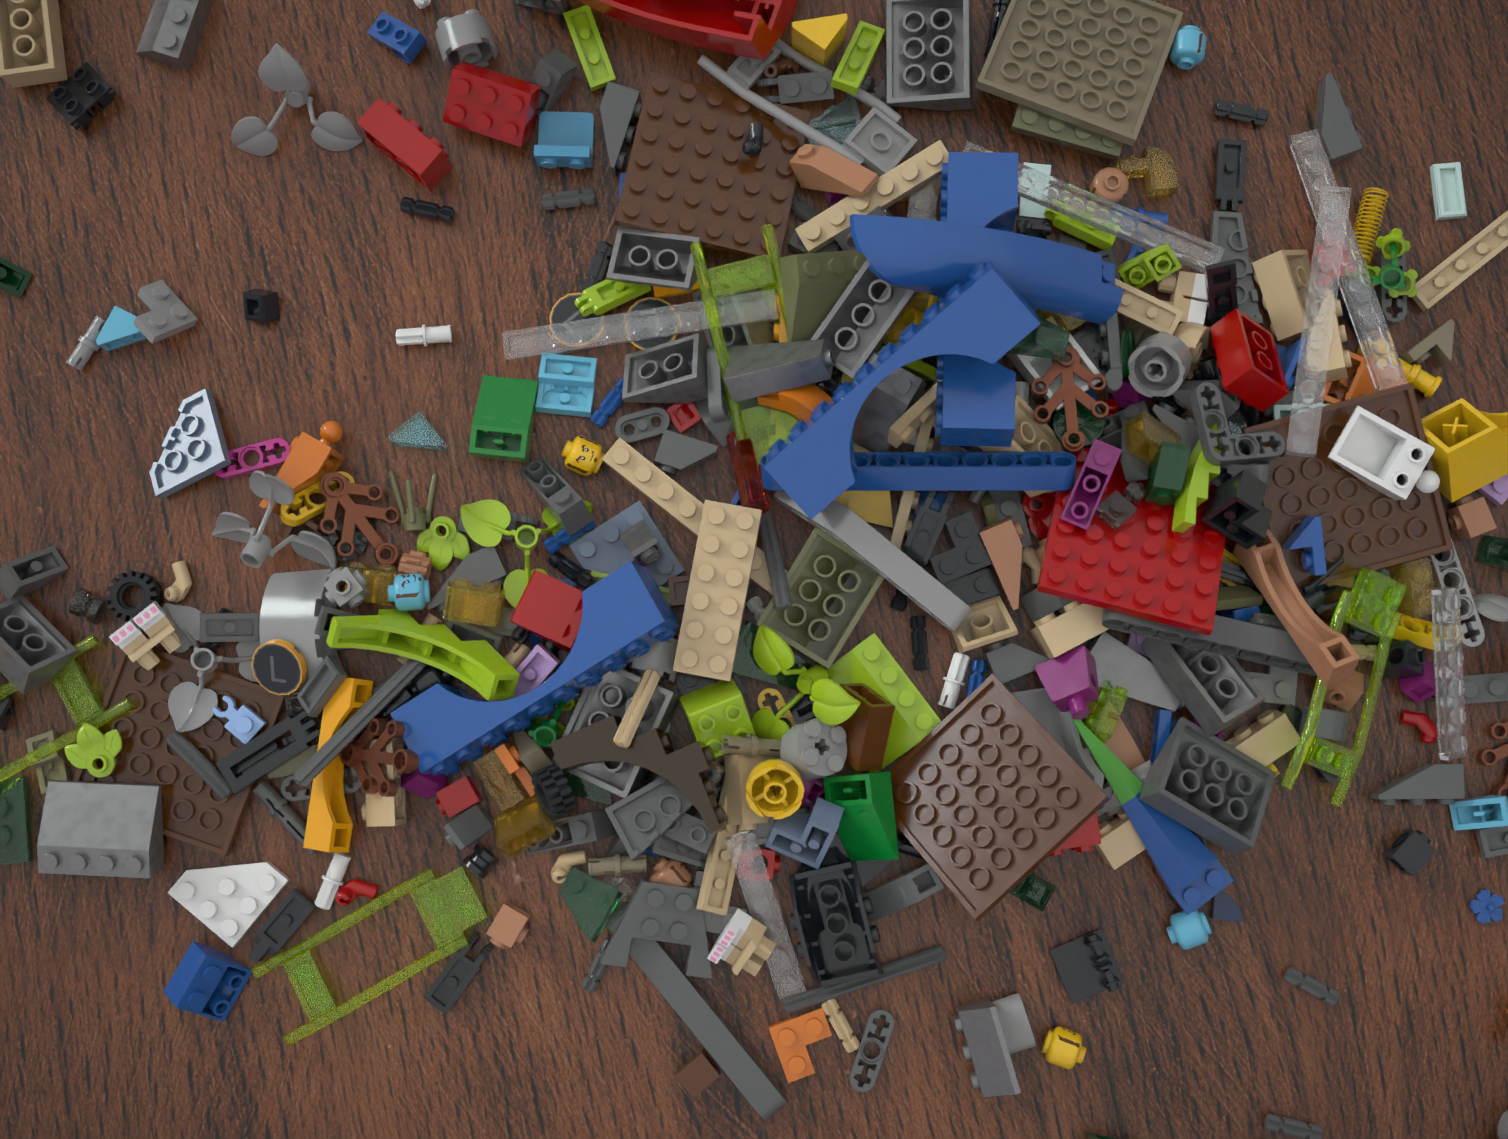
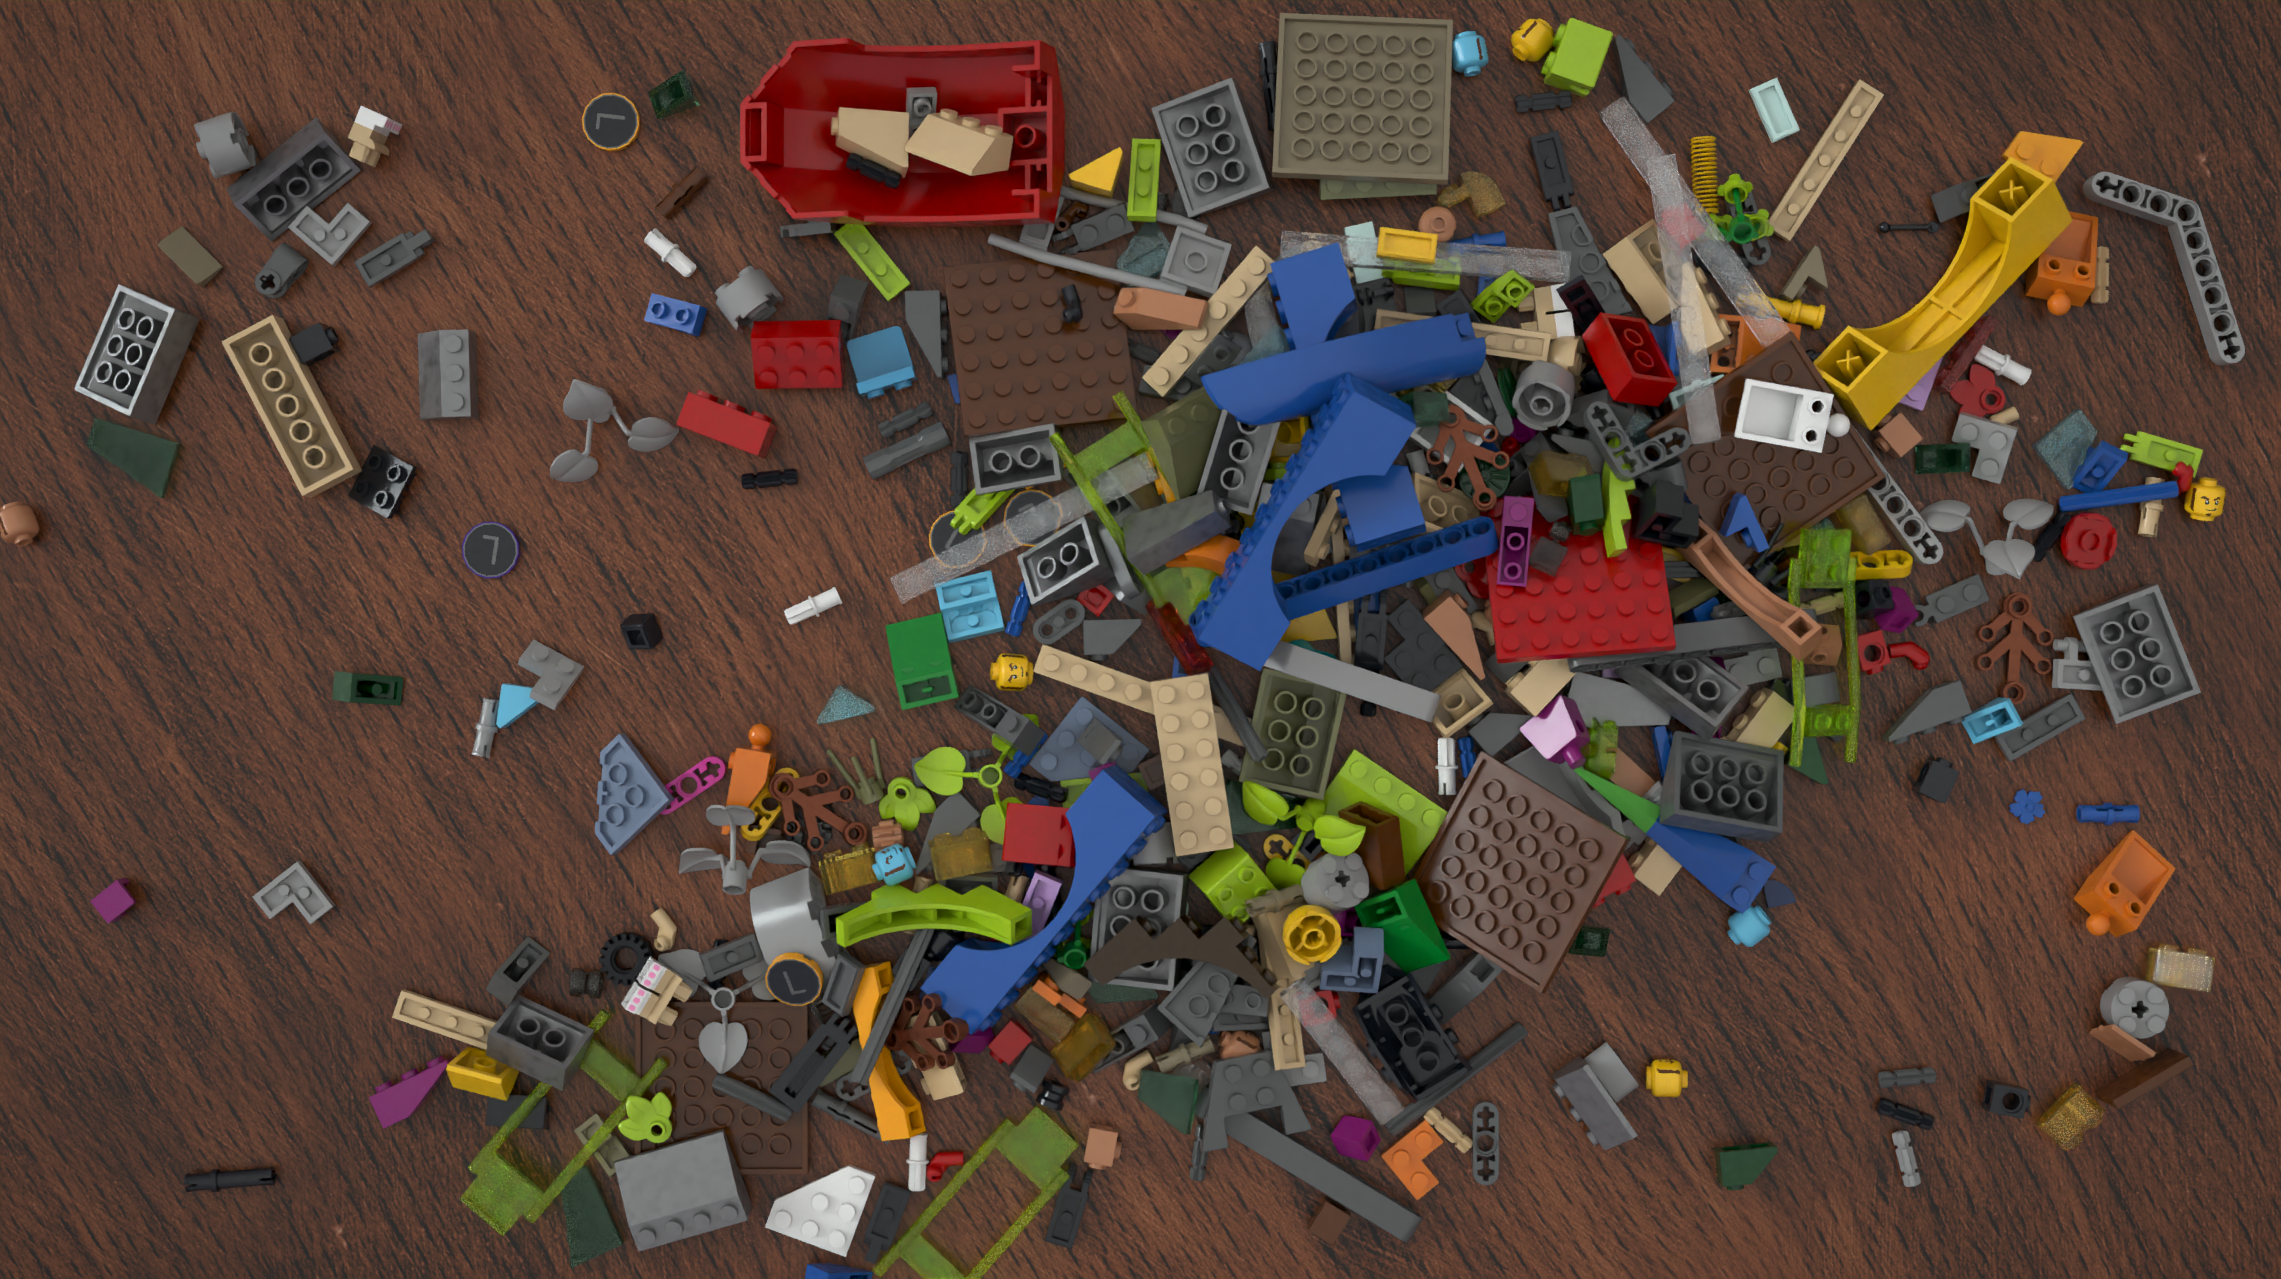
camera: 20 degrees left, 5 degrees up
(154, 187) = (491, 550): none -> black tile
(242, 722) = (778, 1044): light blue plate -> none
(355, 591) = (841, 875): light grey brick -> none
(542, 227) = (888, 459): none -> dark grey axle
(553, 792) = (1102, 1008): black tyre -> none
(636, 708) = (1154, 904): tan axle -> none
(742, 944) = (1330, 1087): tan hips -> none
(750, 1002) = (1355, 1137): none -> magenta panel
(919, 643) = (1401, 741): black axle -> none
(1077, 191) = (1407, 245): none -> yellow tile
(1087, 966) = (1663, 994): black hinge -> none
(1249, 54) = (1532, 40): none -> yellow head
(1285, 78) = (1576, 57): none -> lime piece
(1298, 798) = (1811, 763): none -> dark green slope
(1311, 986) = (1882, 939): dark grey axle -> none
(1394, 703) = (1875, 639): none -> red brick
(1449, 673) = (1919, 596): clear plate -> none

